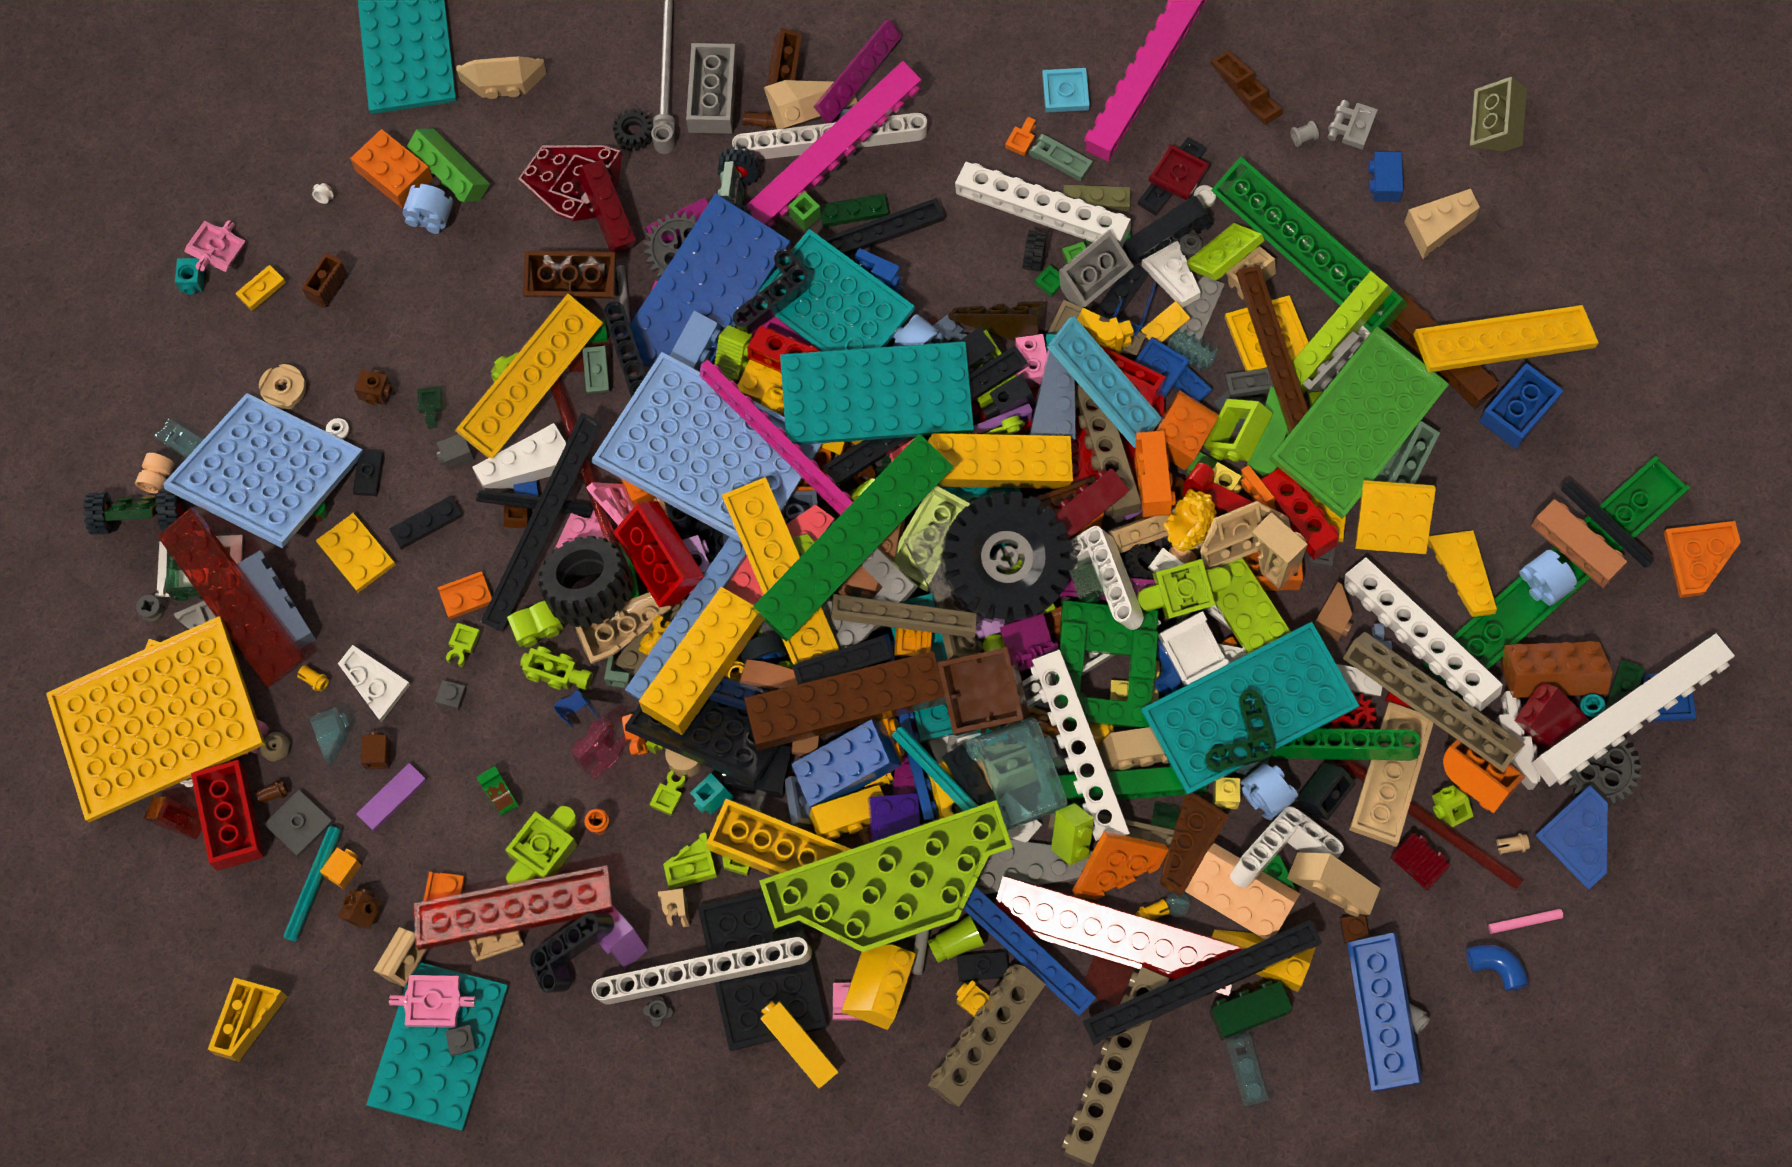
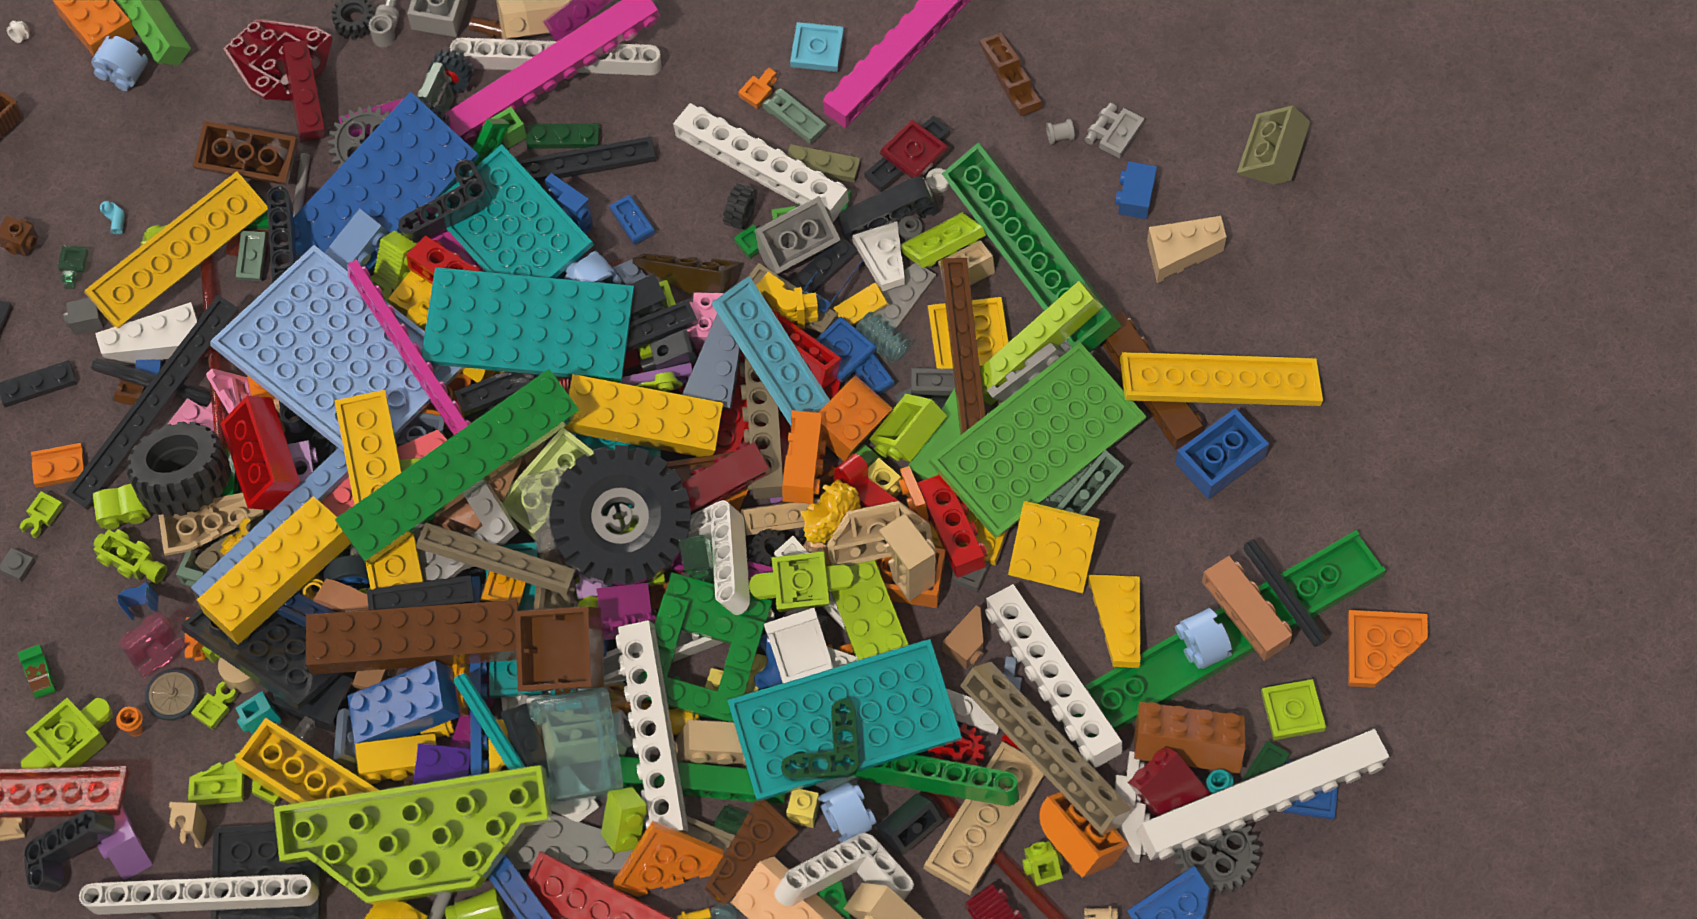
camera: 10 degrees right, 5 degrees down
(457, 351) = (114, 214): none -> medium azure arm
(626, 790) = (172, 694): none -> dark tan wheel
(793, 223) = (490, 137): none -> green plate
(936, 278) = (631, 219): none -> blue plate
(1637, 627) = (1293, 709): none -> lime plate

